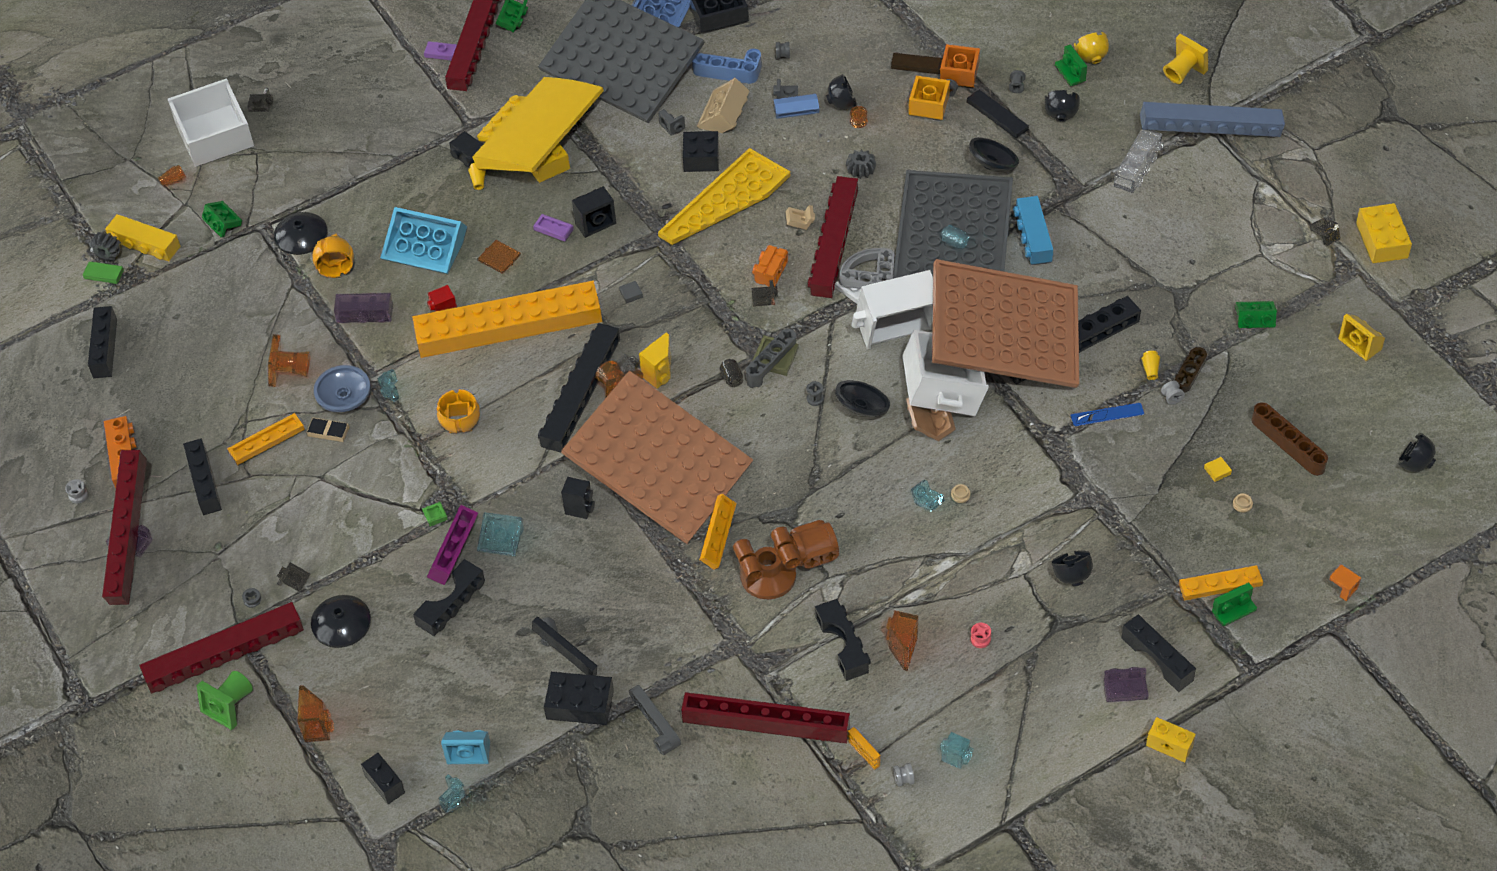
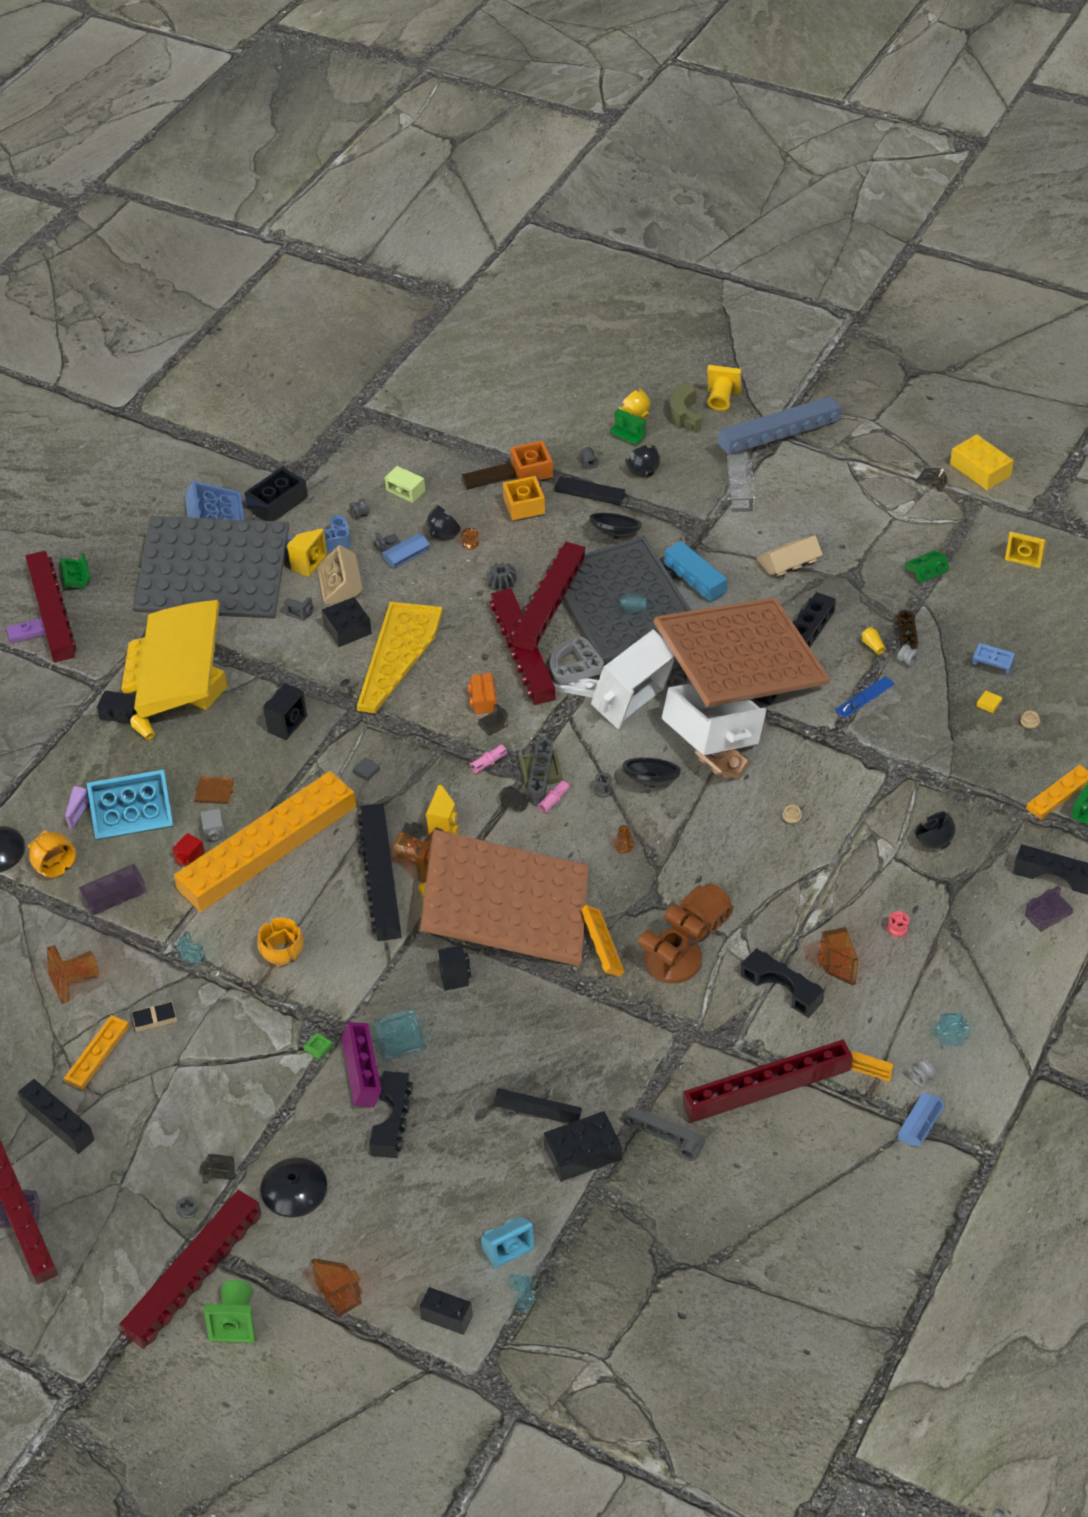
camera: 30 degrees left, 5 degrees down
(342, 388) = (145, 963): sand blue dish -> none
(379, 224) = (77, 805): none -> lavender slope
(475, 287) = (213, 825): none -> light grey brick
(553, 227) = (251, 742): medium lavender plate -> none
(708, 72) = (307, 551): none -> yellow slope
(736, 327) = (488, 758): none -> bright pink pin
(767, 385) = (553, 797): none -> bright pink axle
(797, 452) = (624, 841): none -> clear orange cone
(800, 218) = (480, 643): tan bracket -> none
(837, 42) = (405, 484): none -> yellowish green brick
(873, 814) = (921, 1120): none -> medium blue piece
(883, 199) = (549, 596): none -> dark red brick
(926, 497) = (766, 830): clear light blue bracket -> none
(1133, 251) = (790, 555): none -> tan slope
(1136, 60) = (680, 401): none -> olive arch
(1250, 429) = (994, 657): none -> medium blue hinge
(1289, 439) = (1033, 652): reddish brown beam -> none

